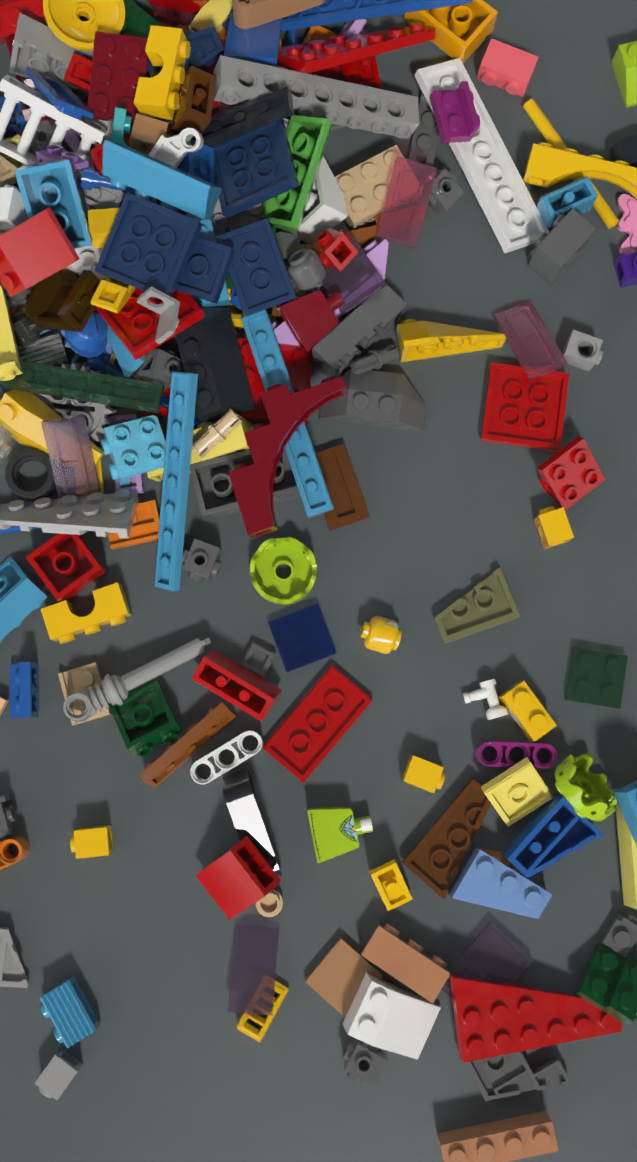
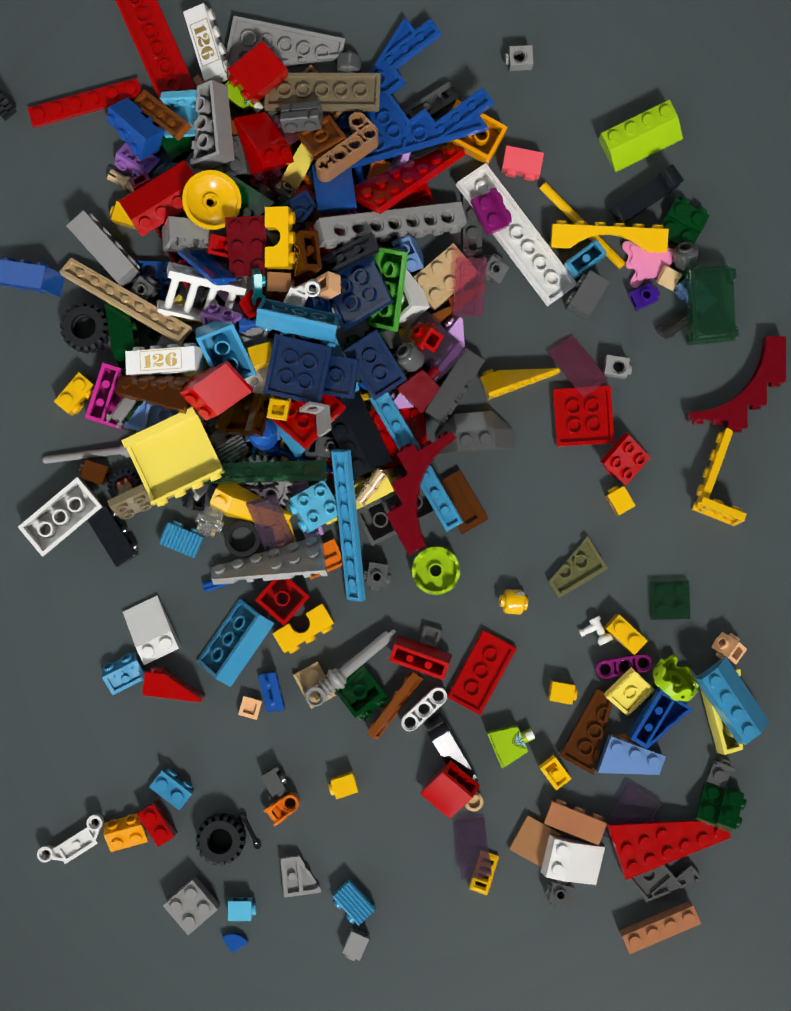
camera: 15 degrees left, 5 degrees up
(216, 150) = (330, 285): none -> light nougat plate
(302, 638) = (458, 614): clear blue tile -> none
(338, 149) = (415, 255): none -> medium blue slope
(374, 359) = (469, 405): dark grey axle -> none

